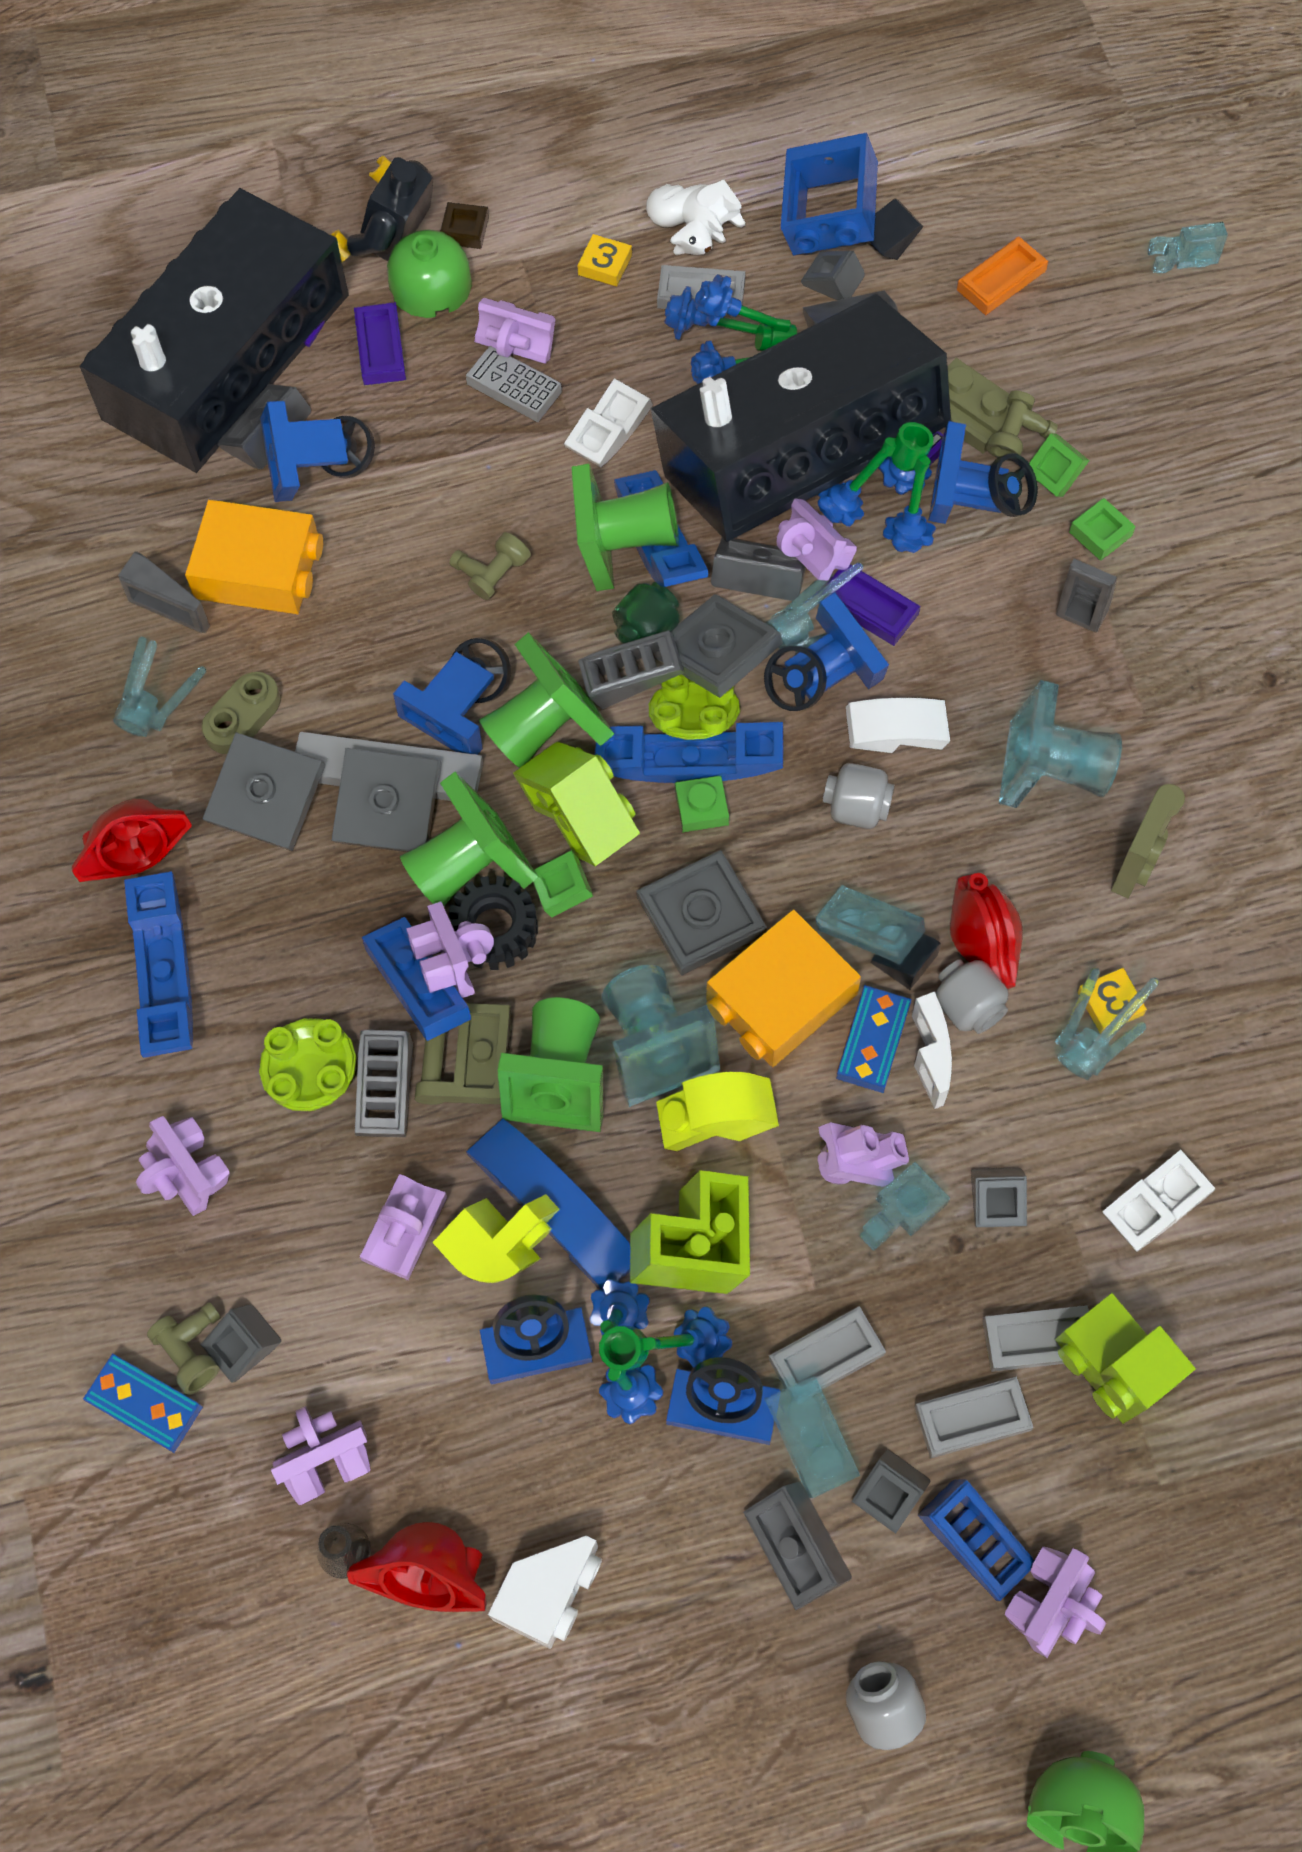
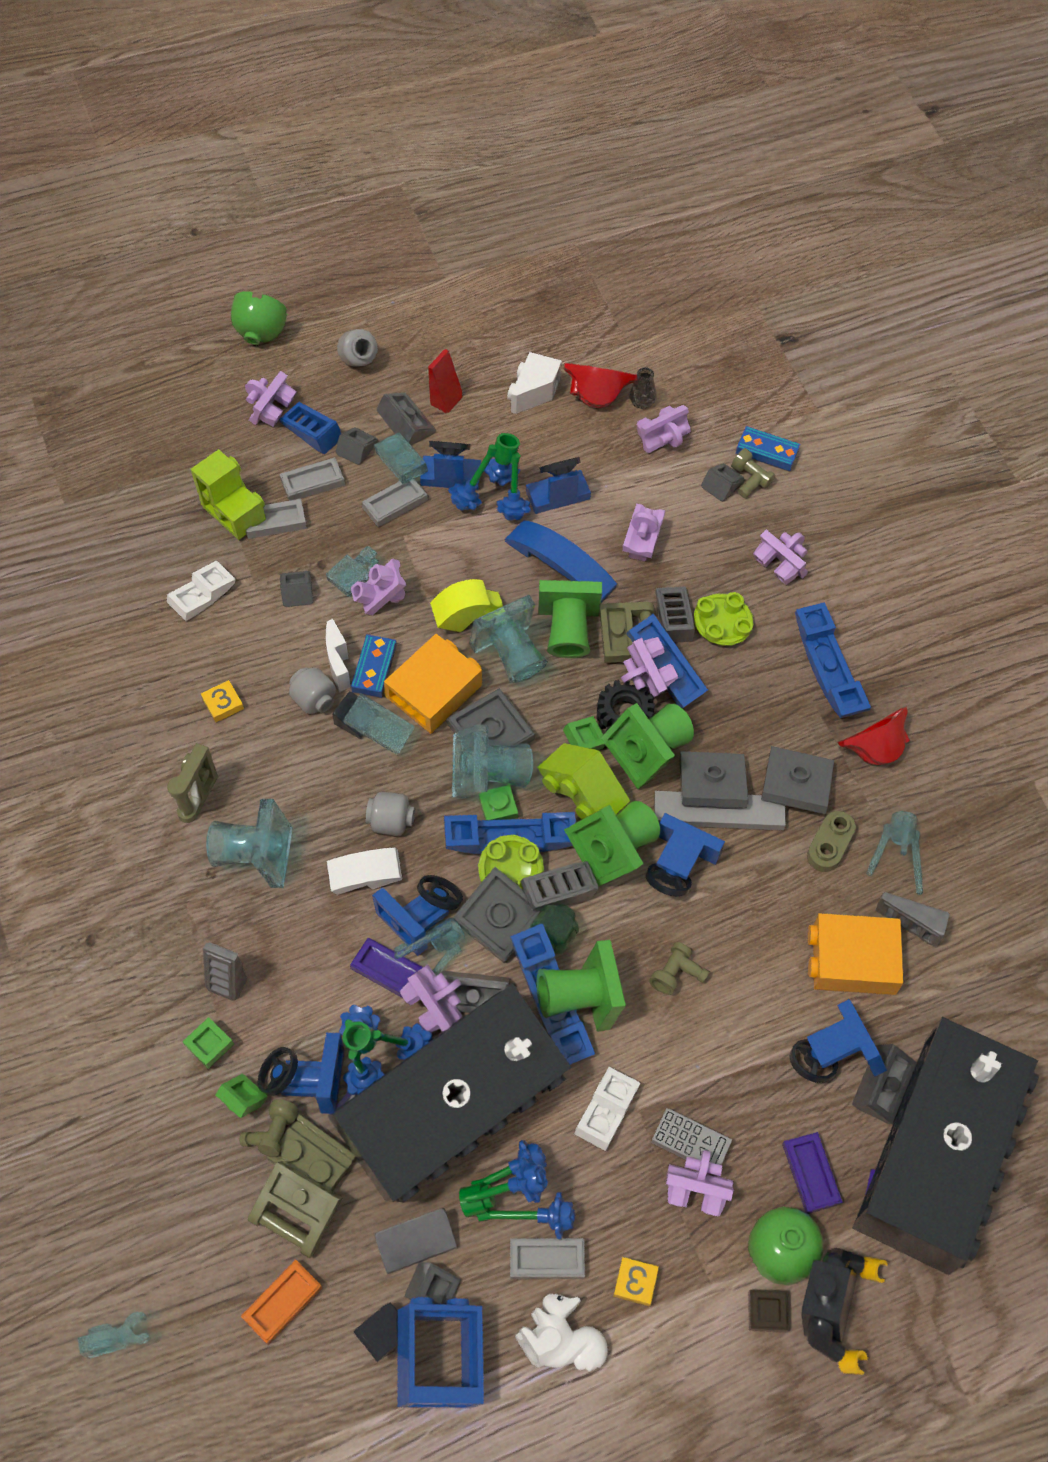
camera: 170 degrees right, 5 degrees down
(490, 1247) = (591, 524): neon yellow brick -> none
(704, 1245) = (469, 528): lime brick -> none
(719, 1587) = (444, 383): none -> red slope
(726, 828) = (478, 763): none -> clear light blue plant
(986, 926) = (302, 740): red hat -> none
(988, 346) = (301, 1199): none -> olive plate
(1088, 1051) = (241, 661): clear light blue plant -> none

